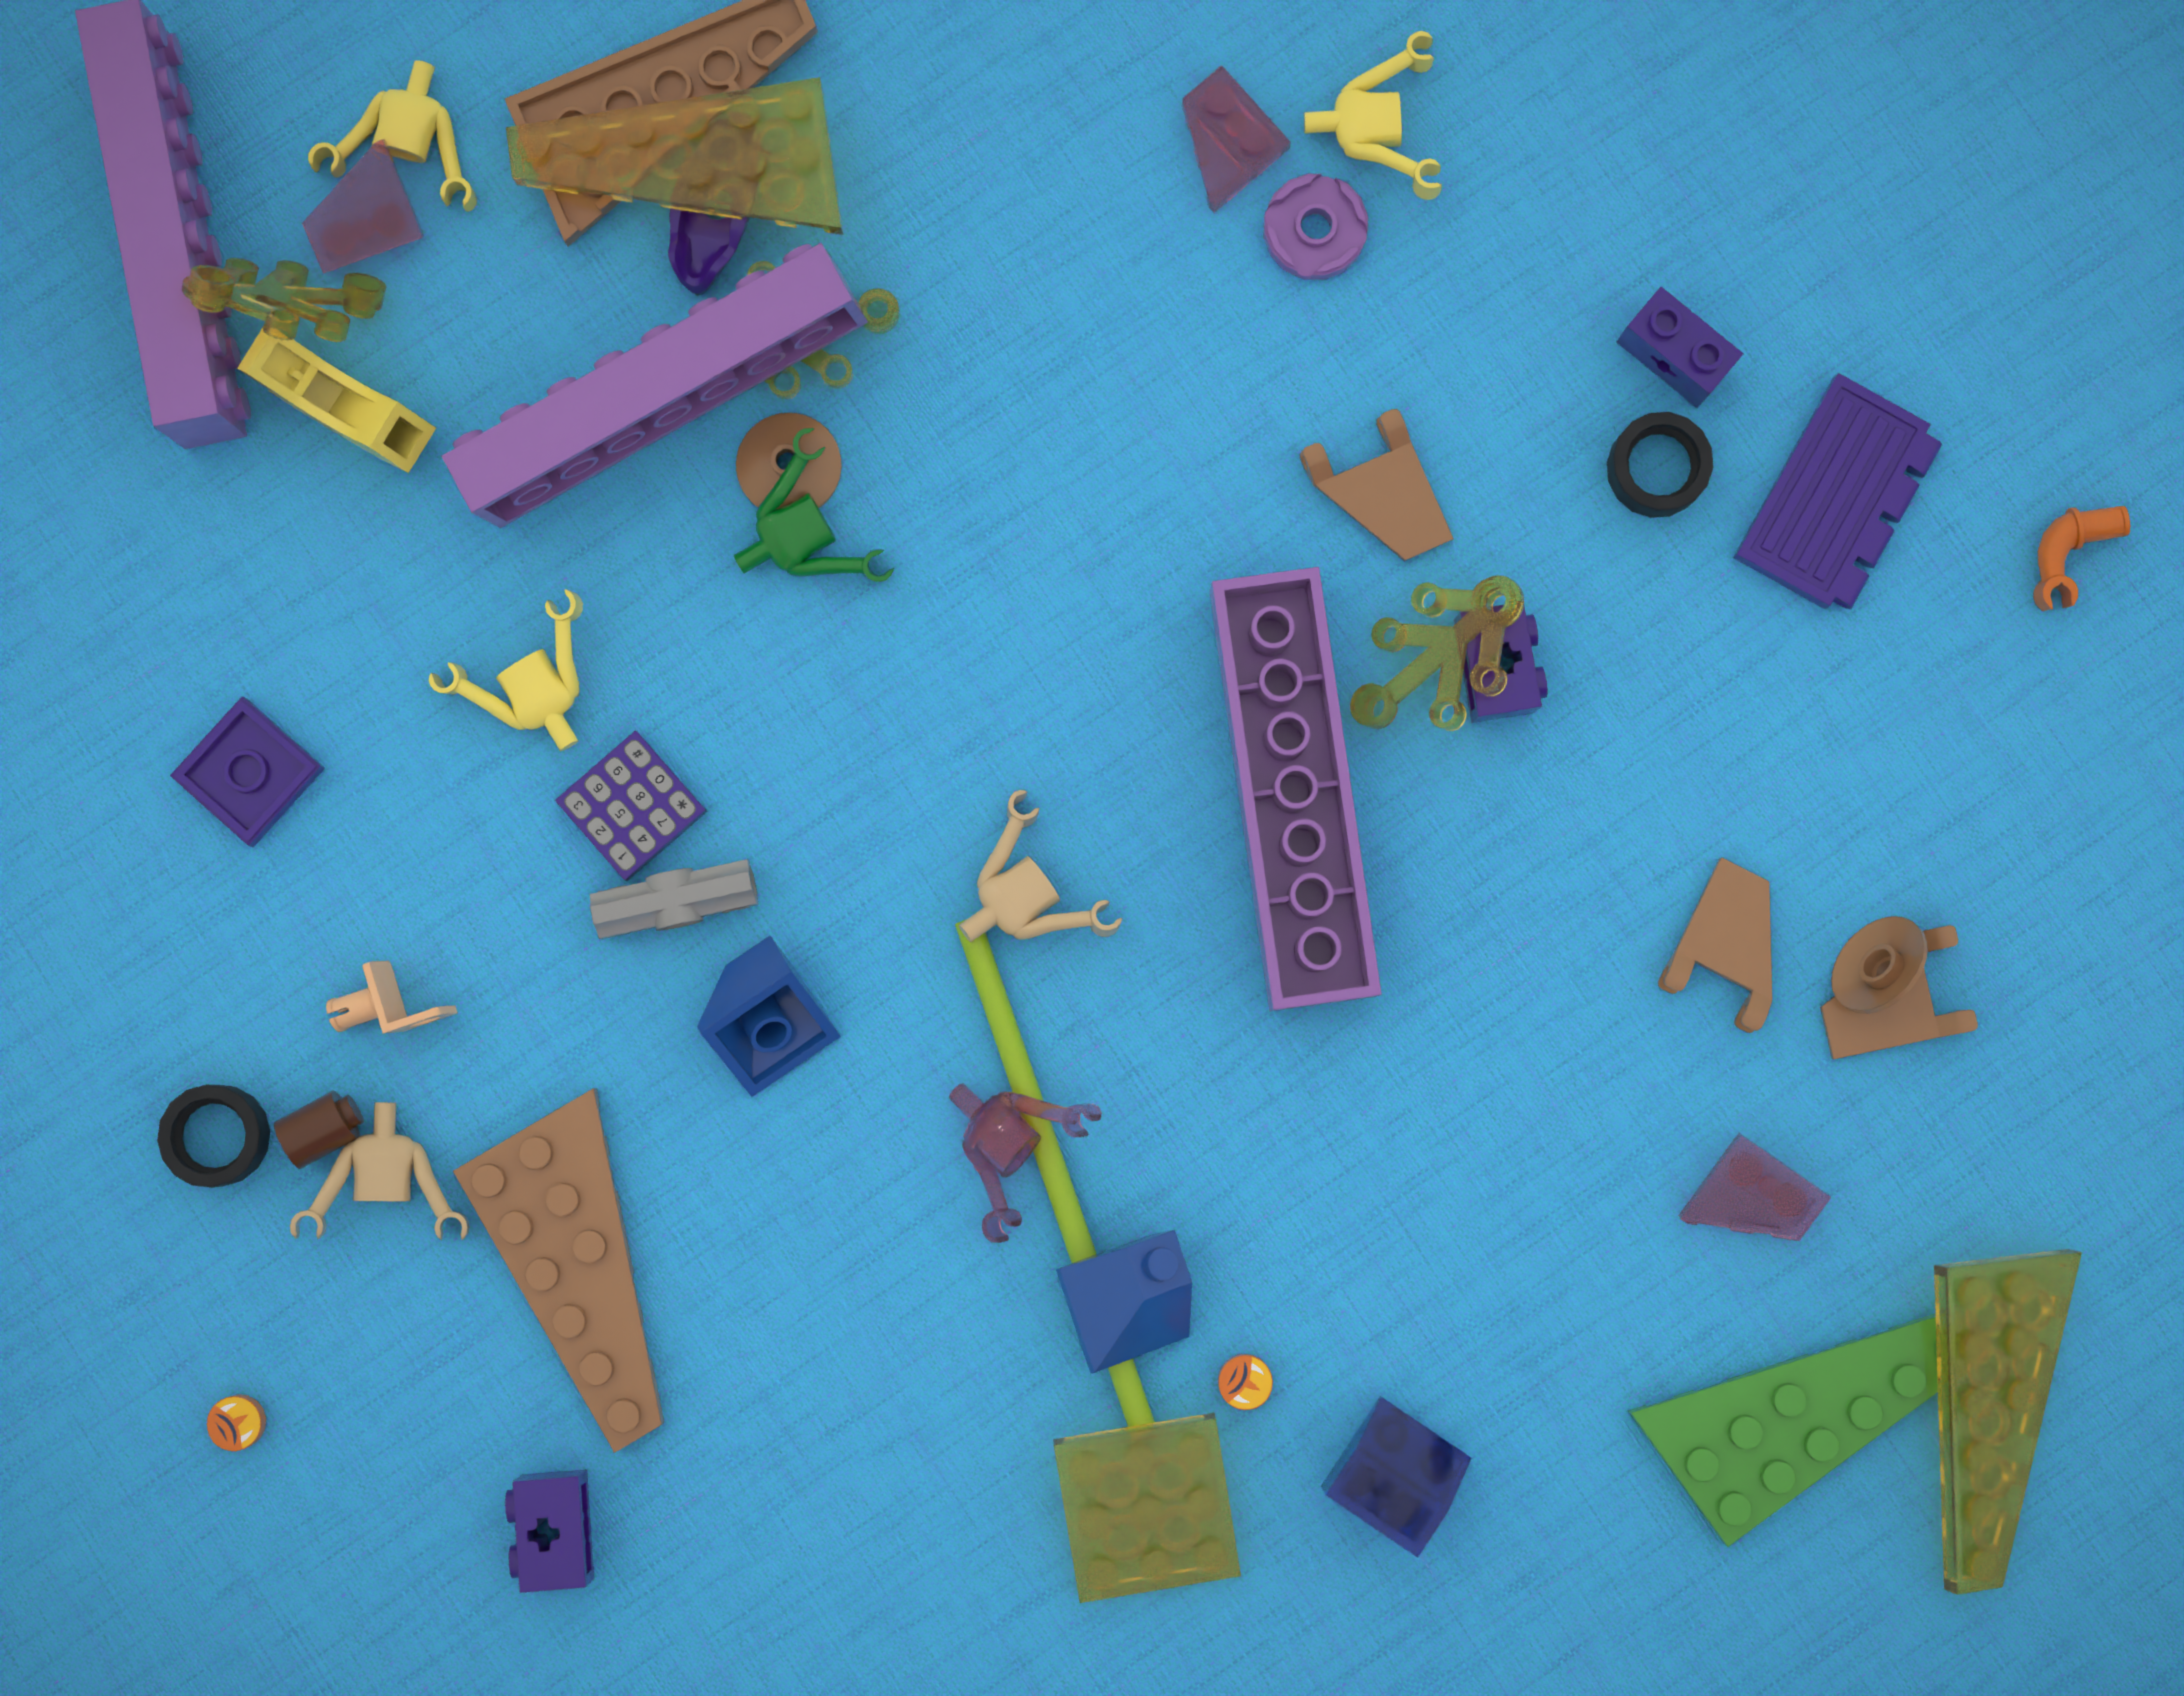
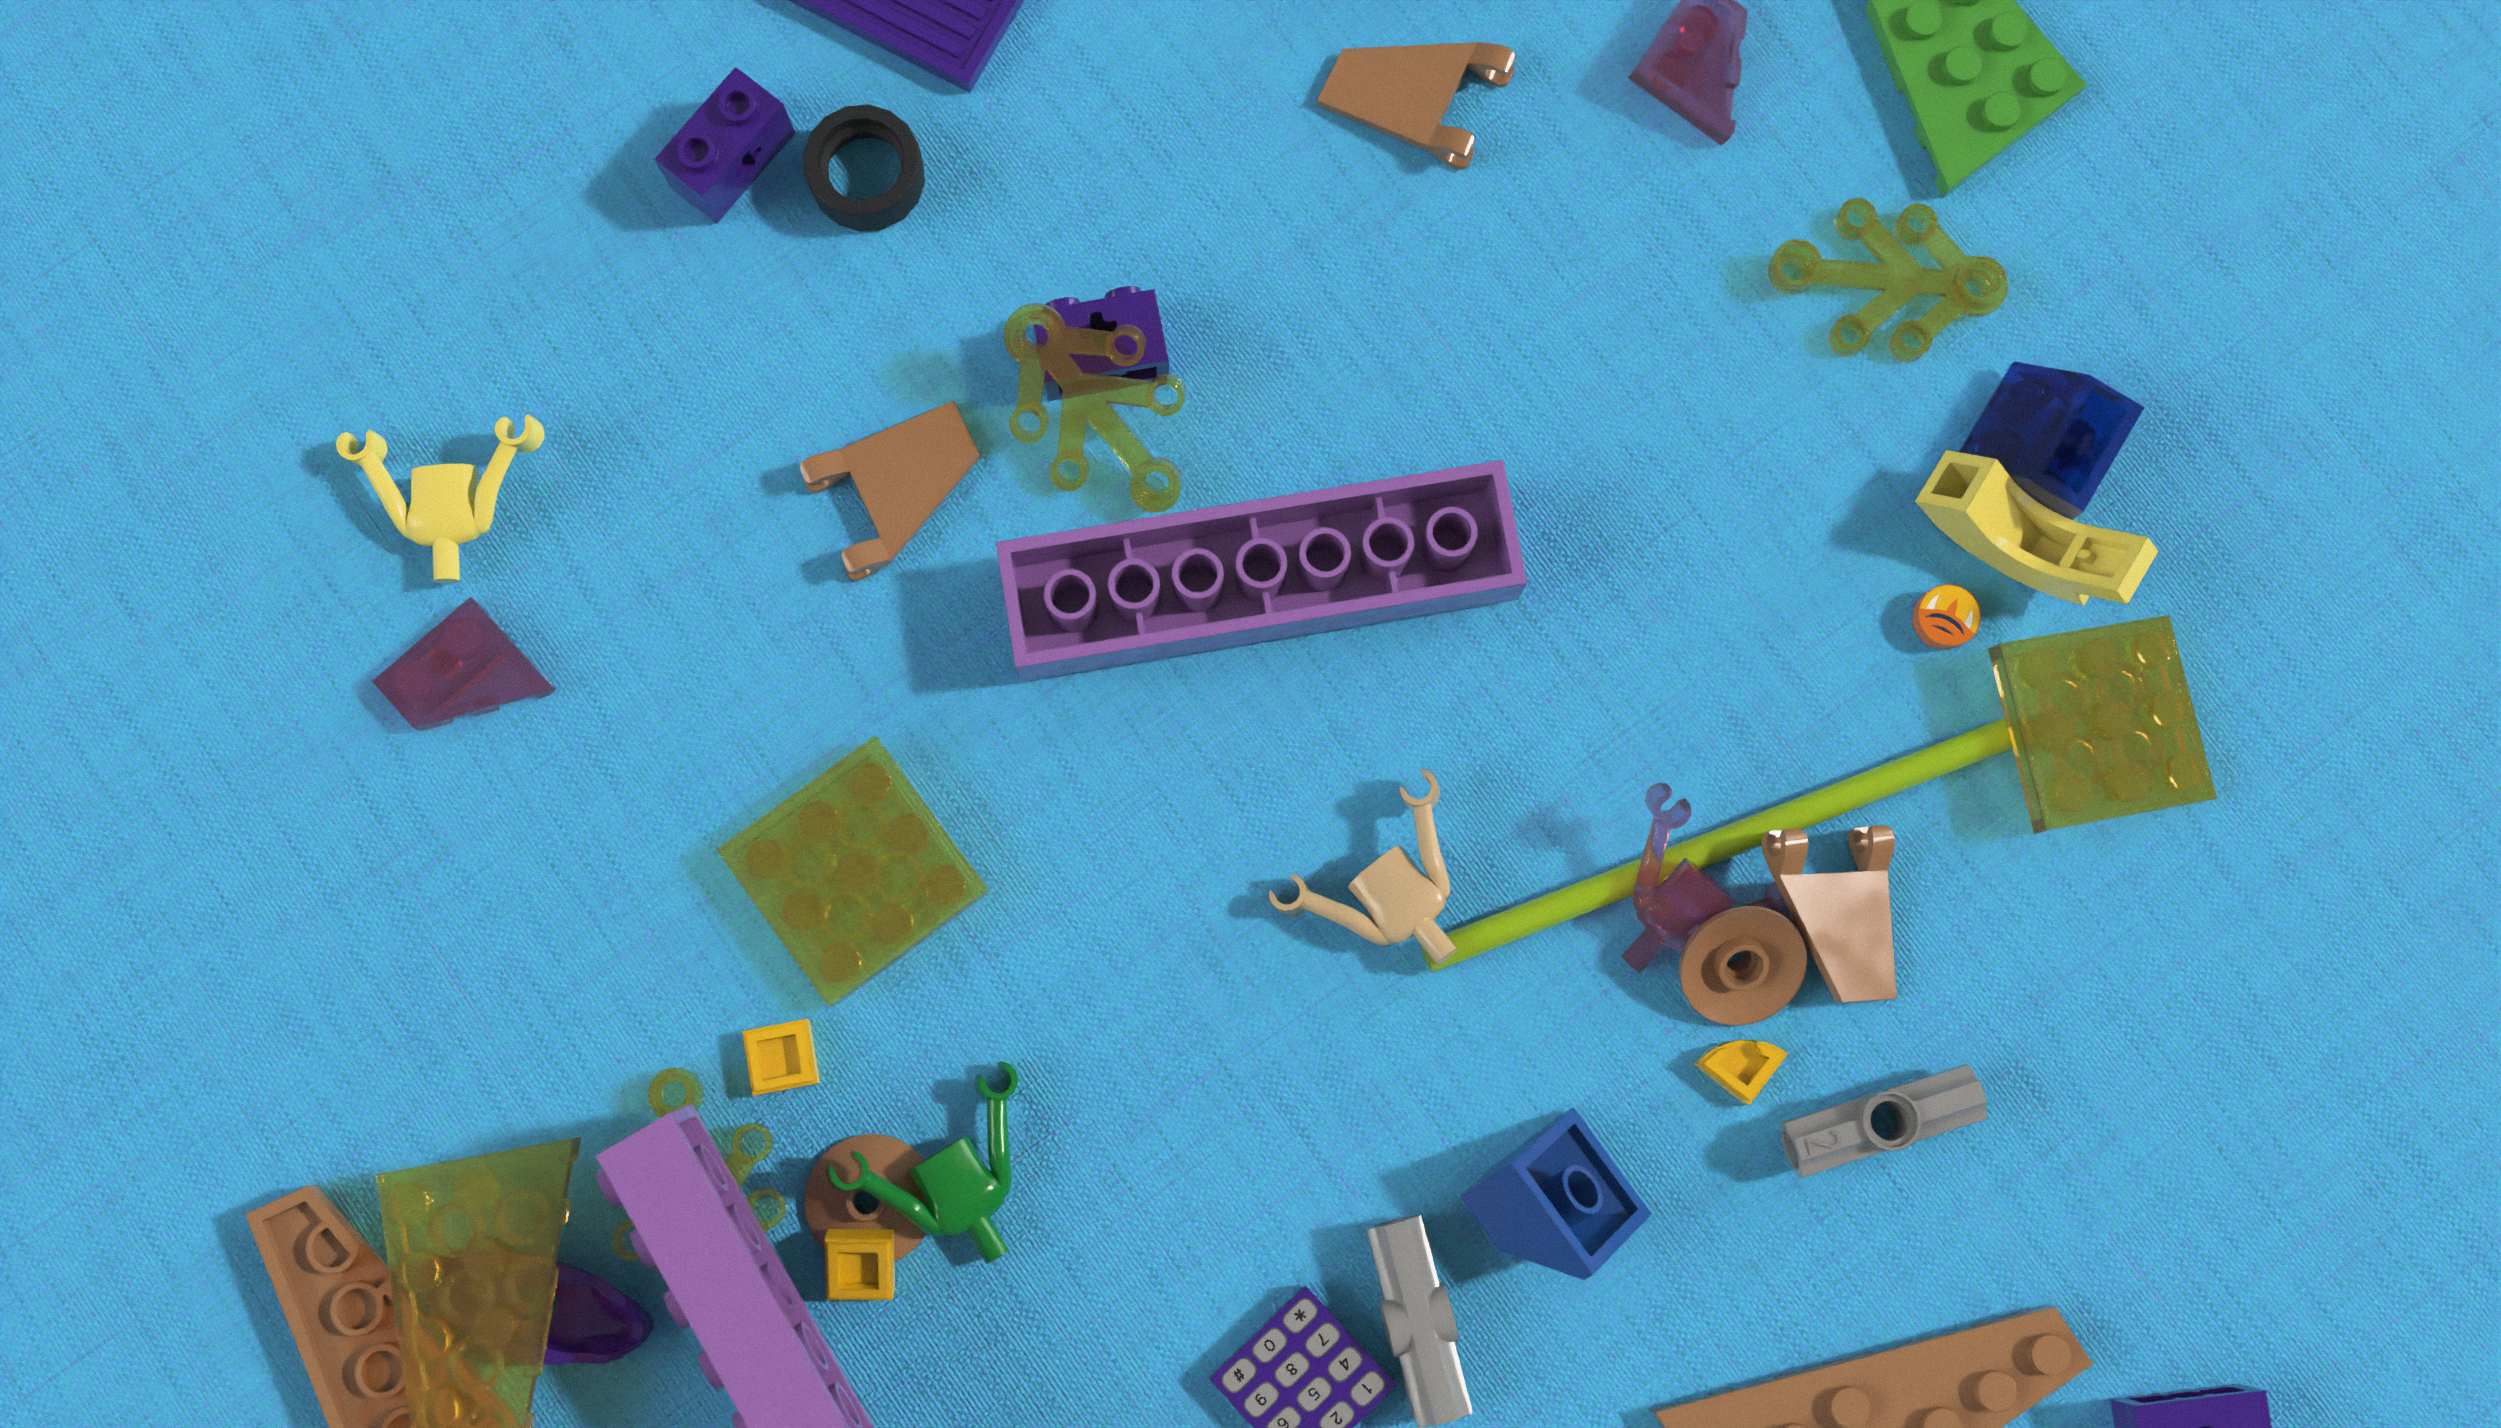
camera: 95 degrees left, 5 degrees down
(737, 455) = (859, 1264): none -> yellow tile
(828, 1325) = (1919, 1108): none -> light grey piece
(868, 1179) = (1741, 1066): none -> yellow tile
(904, 394) = (781, 1057): none -> yellow tile
(932, 1182) = (1757, 982): none -> medium nougat dish
(989, 1269) = (1841, 914): none -> flag
(1053, 452) = (853, 871): none -> clear yellow plate
(1129, 1299) = (1864, 750): blue slope -> none
(1308, 256) = (600, 593): medium lavender tile -> none
(1312, 1452) = (2006, 528): none -> light yellow arch
(1550, 1362) = (1897, 277): none -> clear yellow plant

